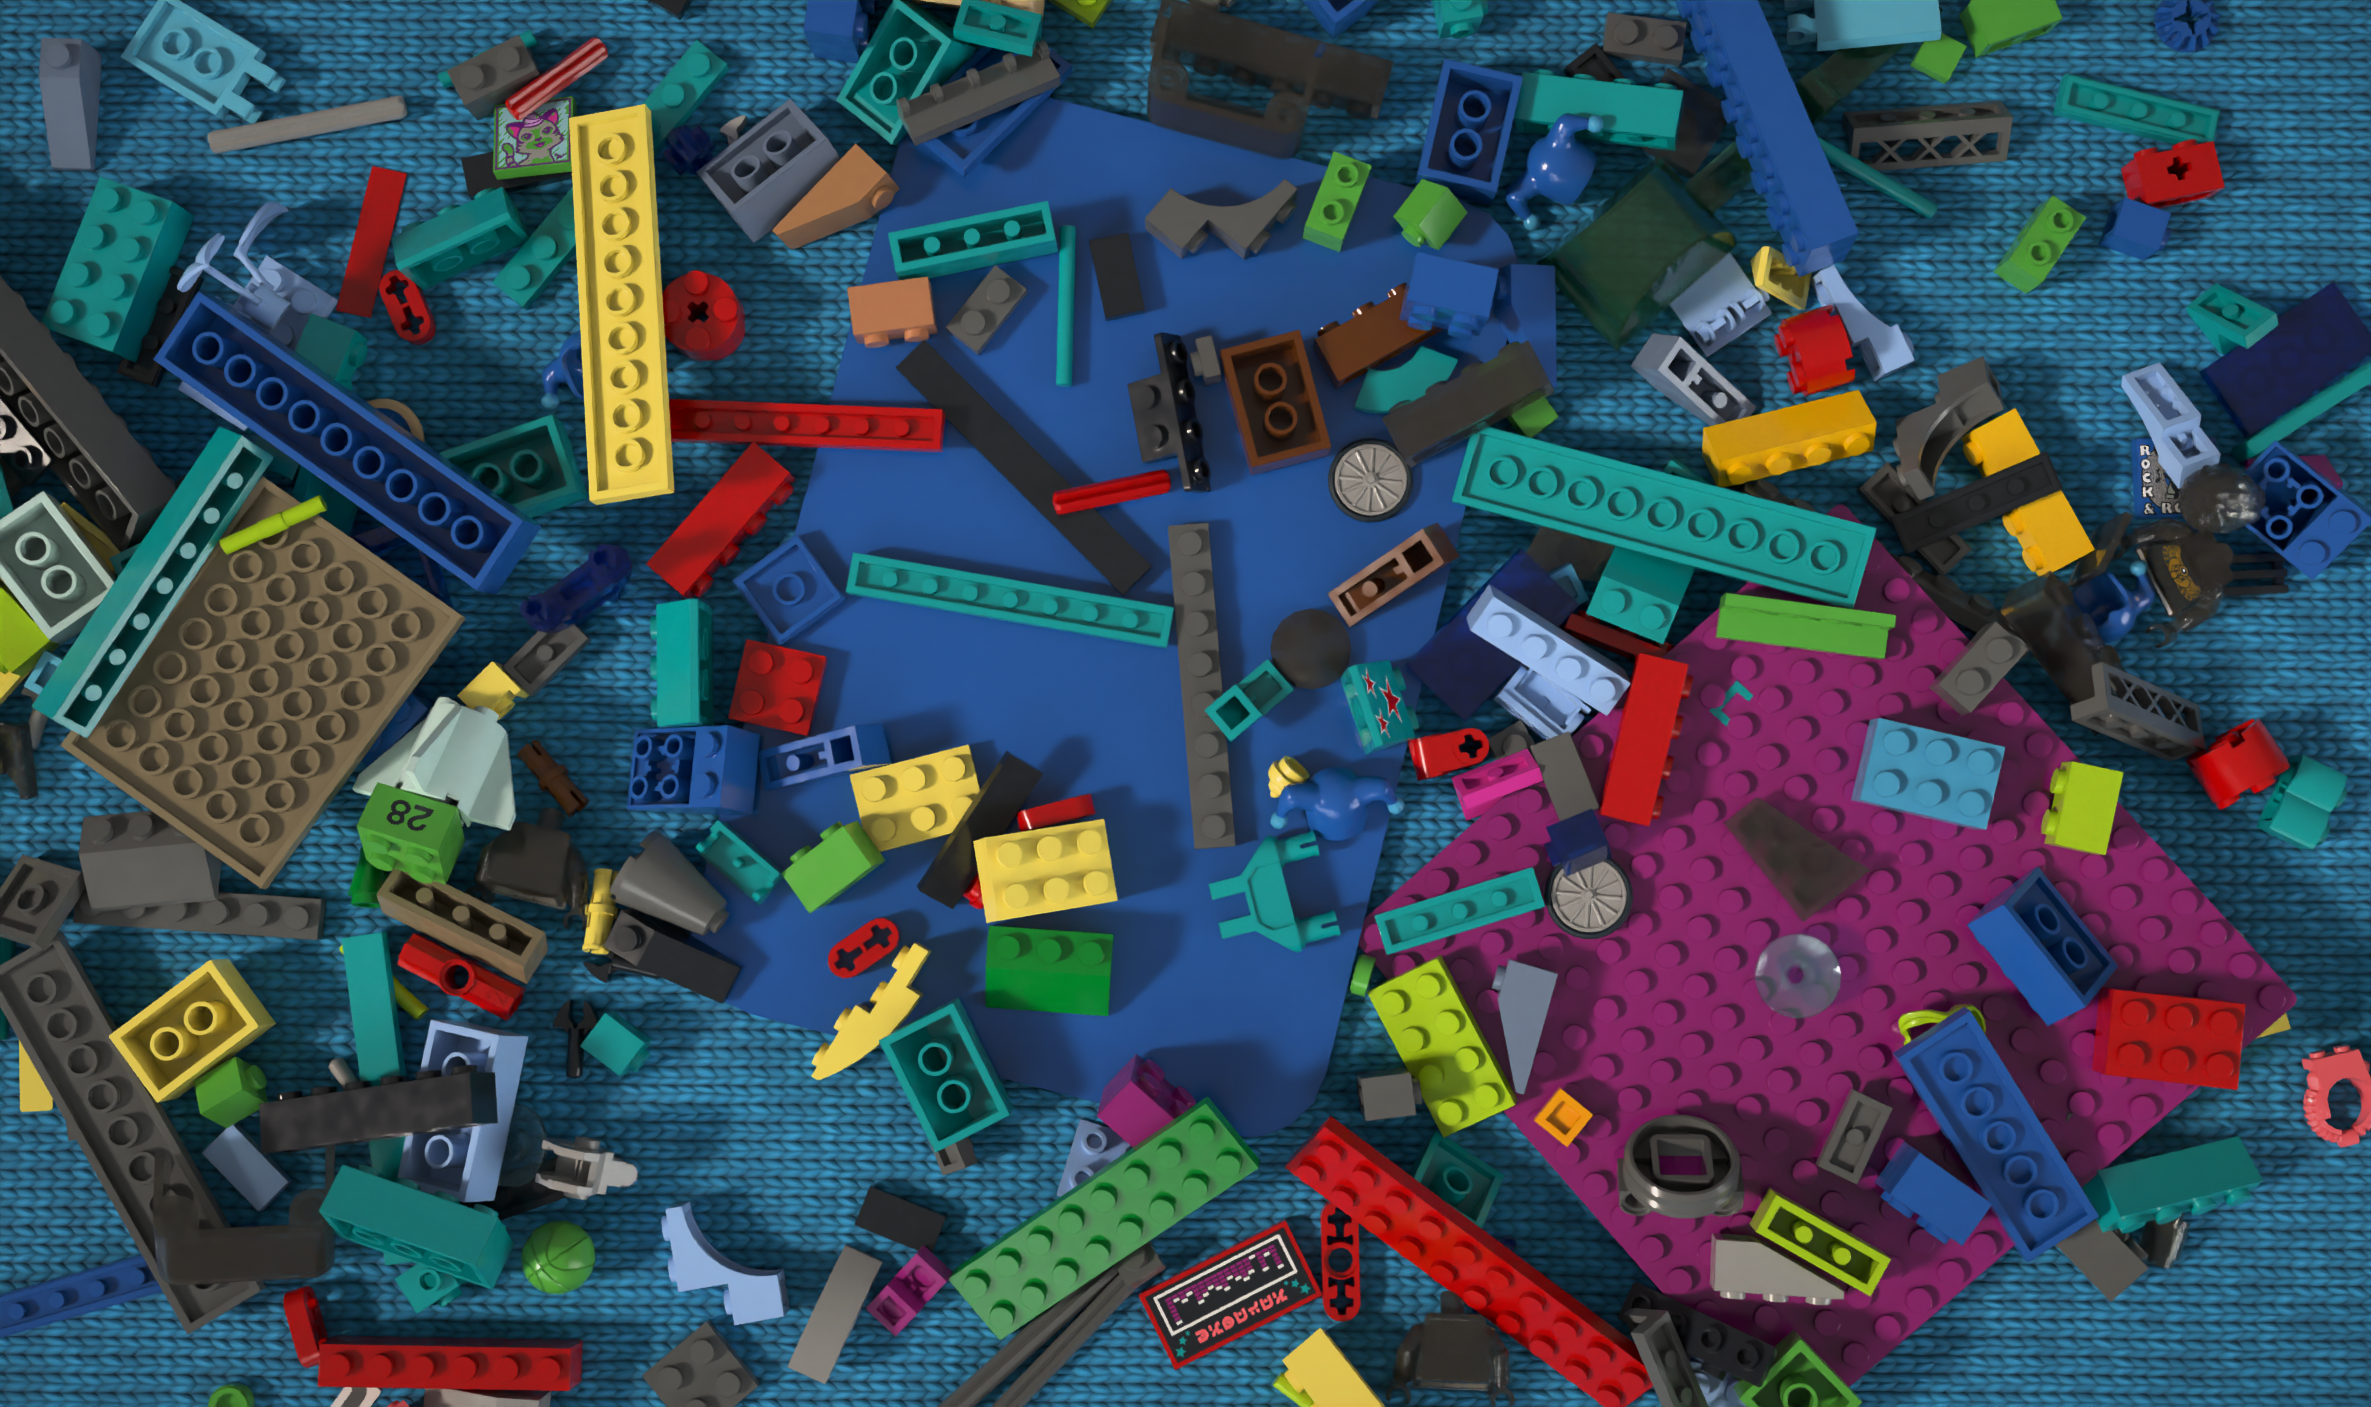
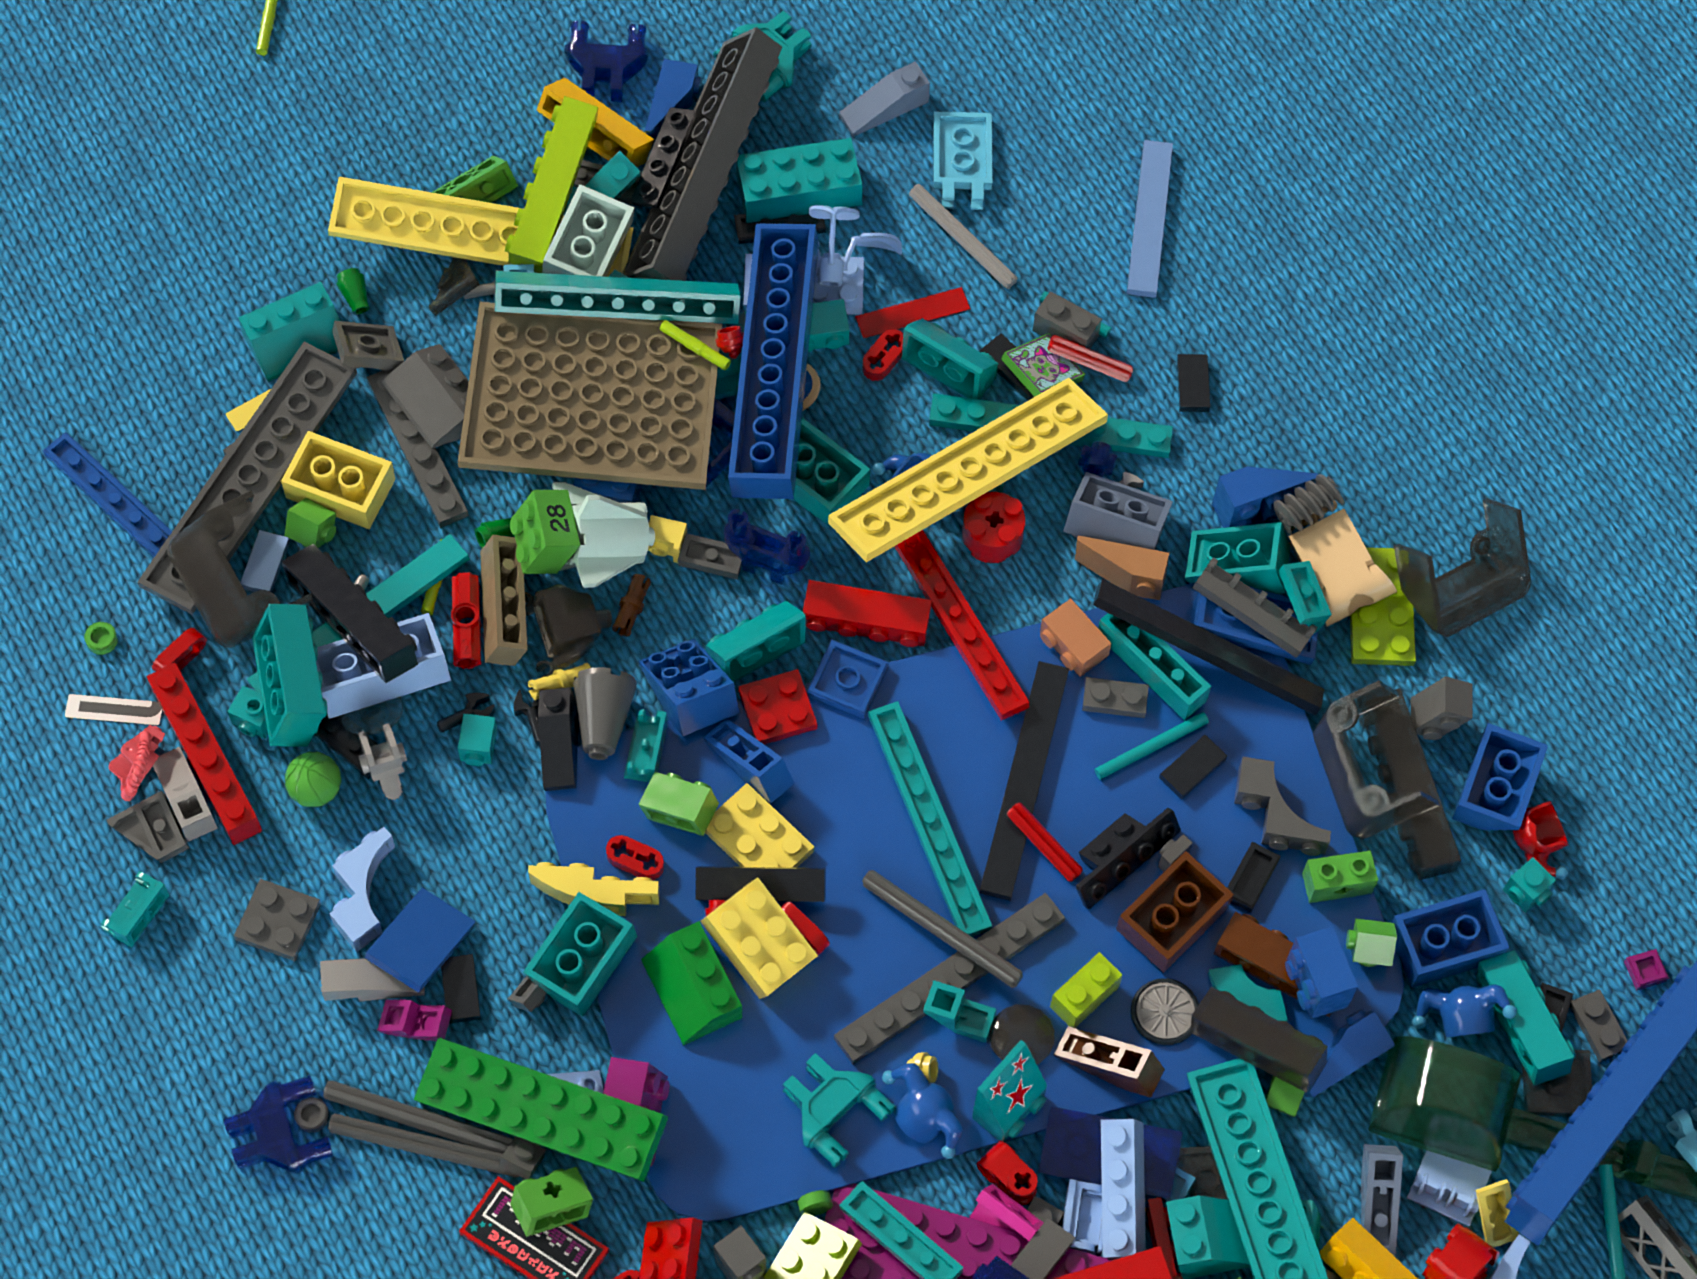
camera: 60 degrees right, 20 degrees down
(292, 480) = (730, 340): none -> red plate
(822, 1238) = (420, 940): none -> blue tile
(993, 174) = (1208, 647): none -> black tile
(1147, 663) = (942, 929): none -> dark grey axle
(1212, 1279) = (551, 1201): none -> bright green brick
(1277, 293) = (1252, 876): none -> black tile
(1305, 551) = (1086, 990): none -> lime brick

